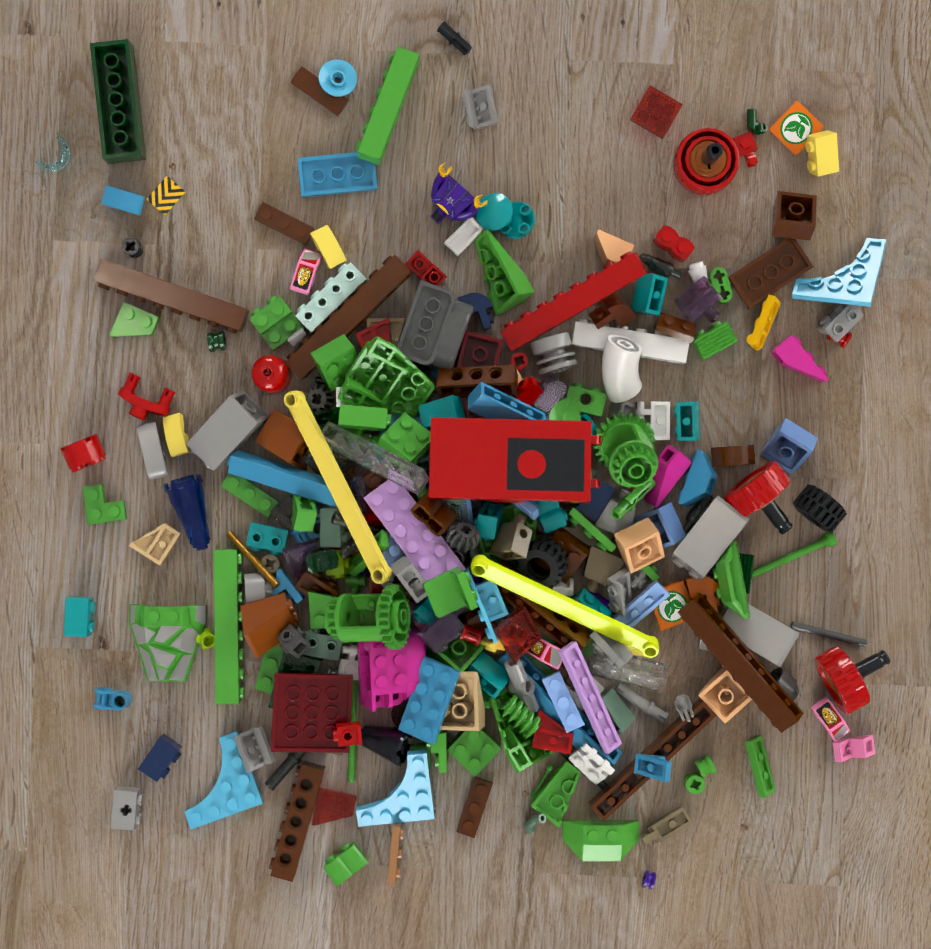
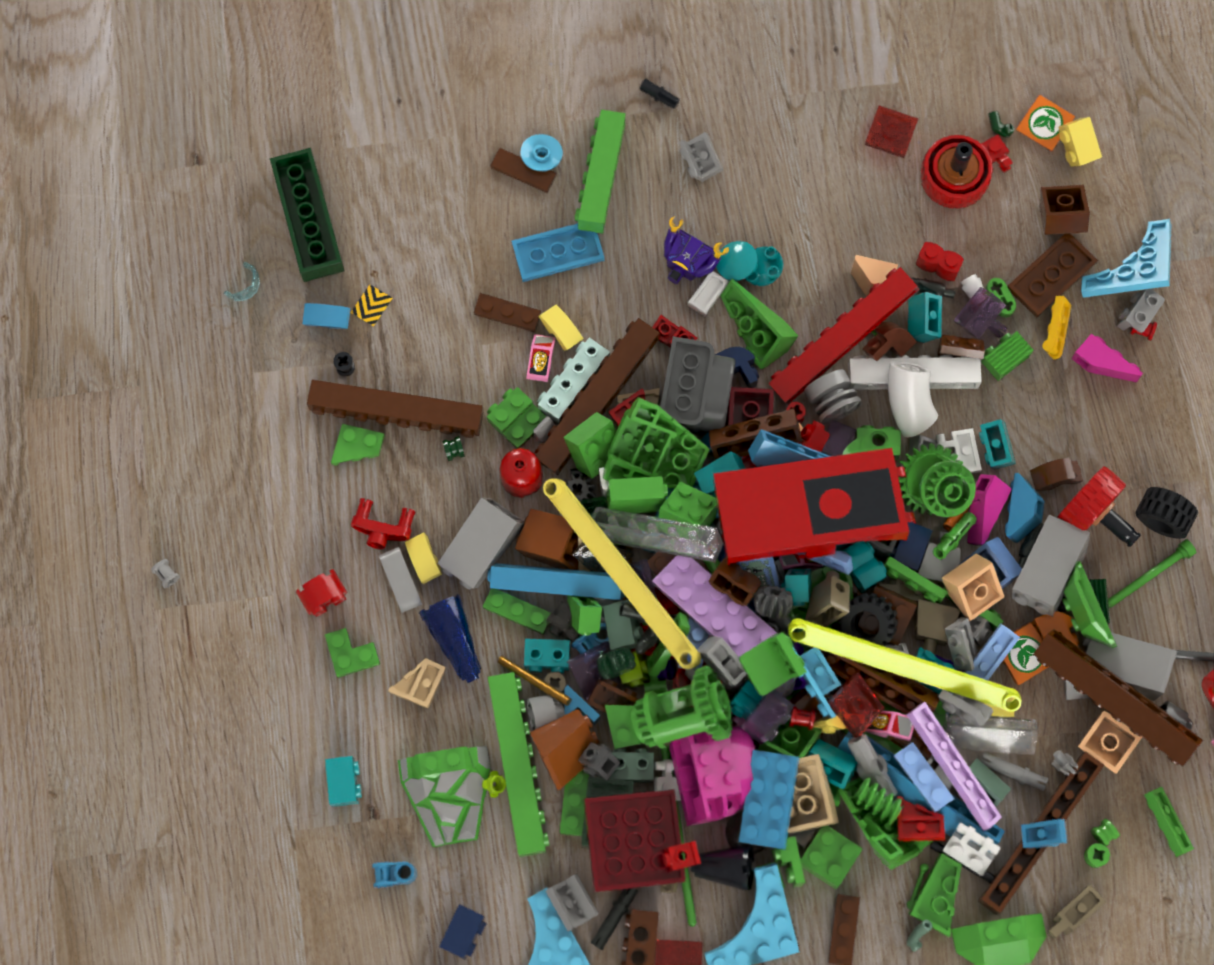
camera: 10 degrees left, 15 degrees down
(789, 446) = (1118, 452): medium blue slope -> none

